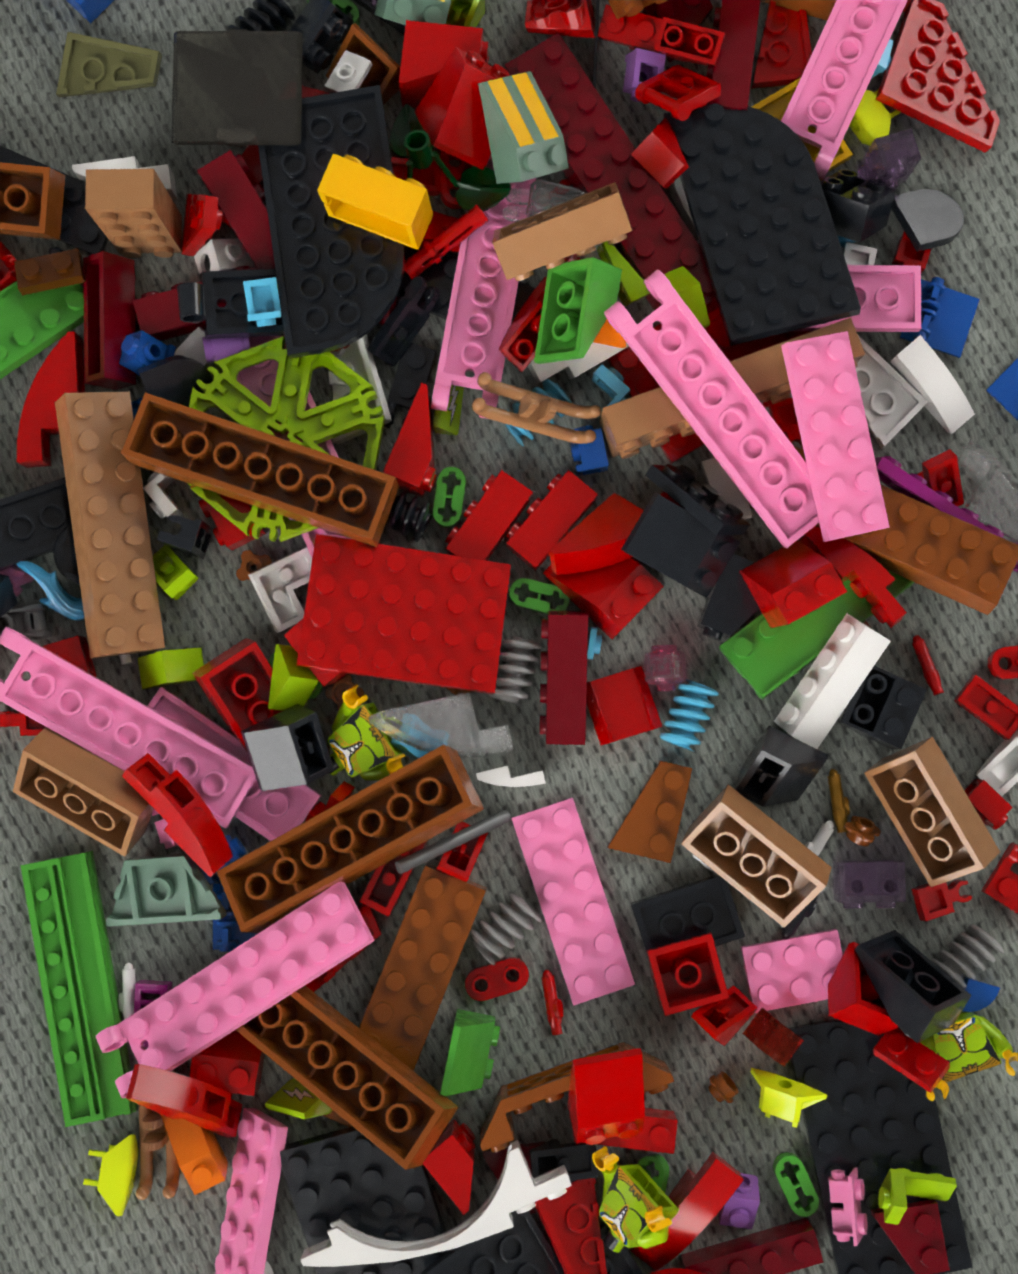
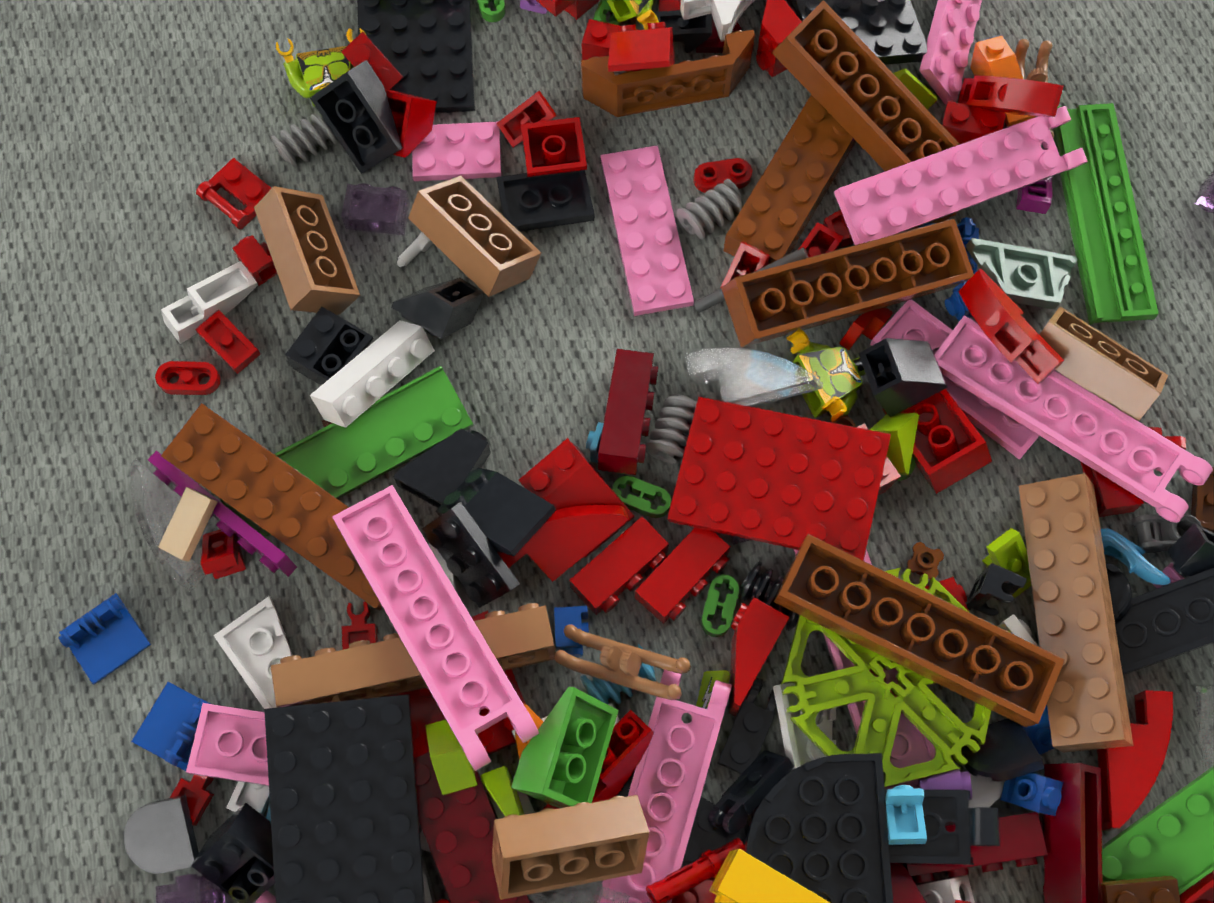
camera: 170 degrees left, 15 degrees down
(117, 1173) = (1069, 63): neon yellow piece -> none
(126, 998) = (1057, 201): white piece -> none
(169, 667) = (1009, 472): lime slope -> none
(276, 584) = (903, 535): white plate -> none
(468, 1052) = (756, 112): bright green slope -> none
(501, 777) = (700, 334): white slope -> none
(553, 1004) = (674, 147): red piece -> none
(611, 383) = (535, 696): medium azure bracket -> none
(621, 706) = (575, 384): red slope -> none
(655, 817) = (558, 290): dark orange wing -> none
(665, 667) = (528, 412): clear pink head -> none
(688, 714) = (511, 366): medium azure piece -> none
(723, 1087) = (537, 70): dark orange plate -> none
(773, 1037) = (487, 98): clear red brick -> none
(784, 1096) = (486, 54): neon yellow piece -> none
(792, 583) = (393, 451): red slope -> none
(835, 436) = (321, 584): bright pink plate -> none
(839, 803) = (387, 280): pearl gold piece -> none
(861, 830) = (372, 251): dark orange plate -> none
(866, 574) = (335, 477): red slope -> none
(930, 672) = (277, 386): red piece -> none
(935, 383) = (204, 654): white slope -> none
(937, 900) = (323, 184): red plate -> none
(979, 493) = (187, 524): none -> tan tile
(982, 994) = (299, 111): blue tile -> none

